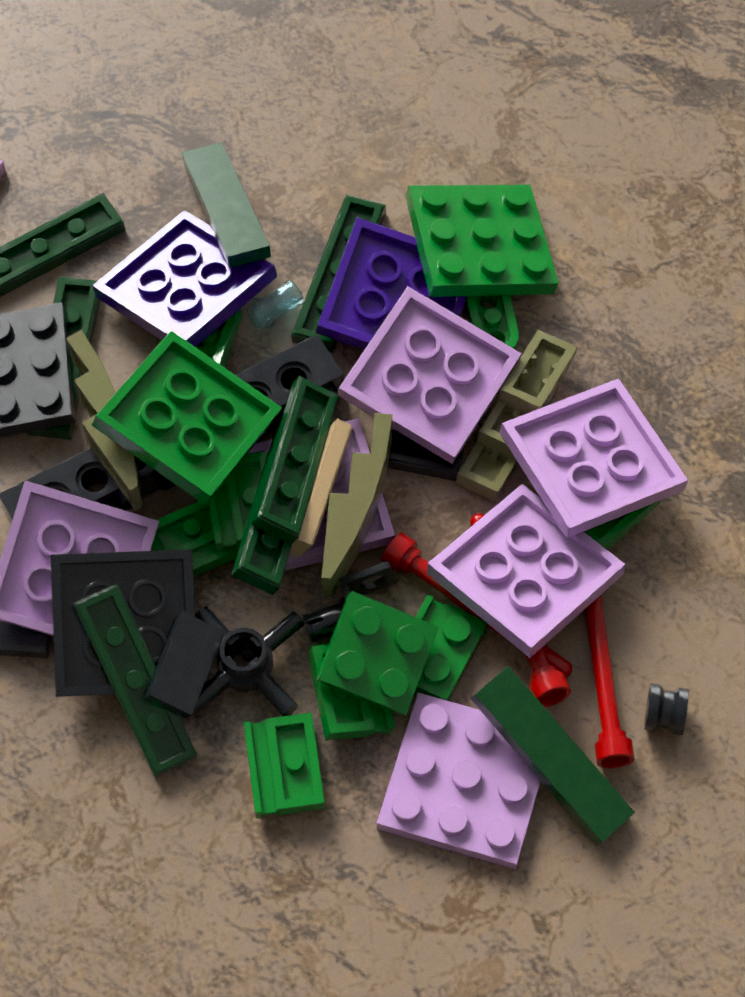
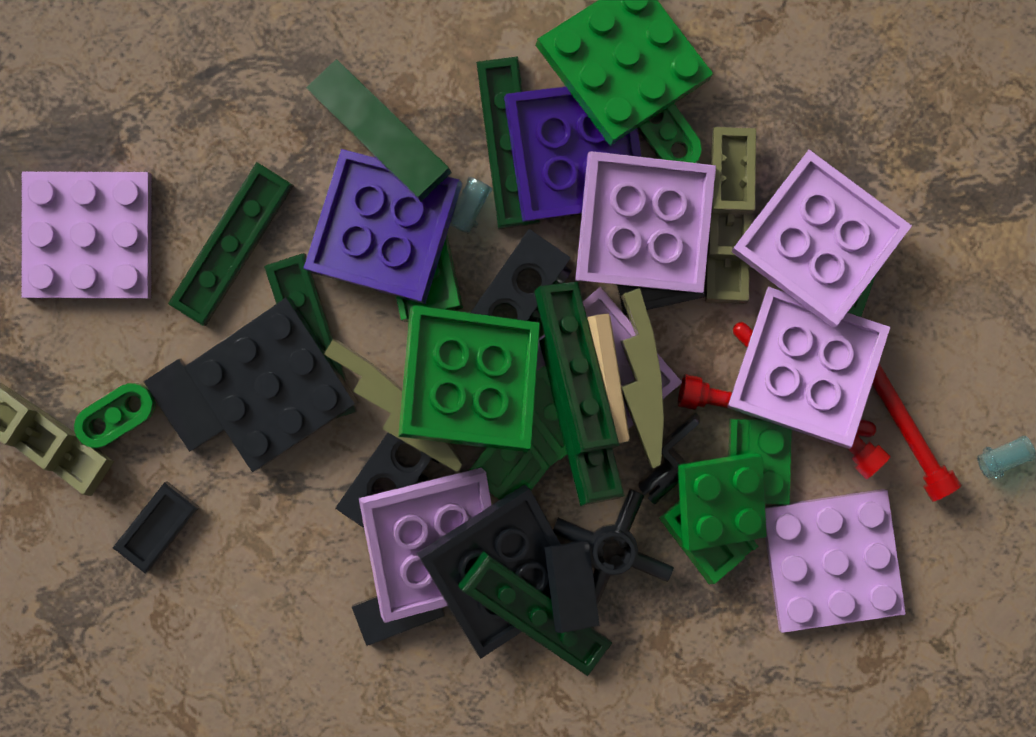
camera: 25 degrees left, 25 degrees up
(284, 765) = (686, 619): green plate -> none
(552, 755) = (898, 517): dark green tile -> none
(666, 709) = (970, 431): black wheel -> none
(694, 754) = (1005, 457): none -> clear light blue pin

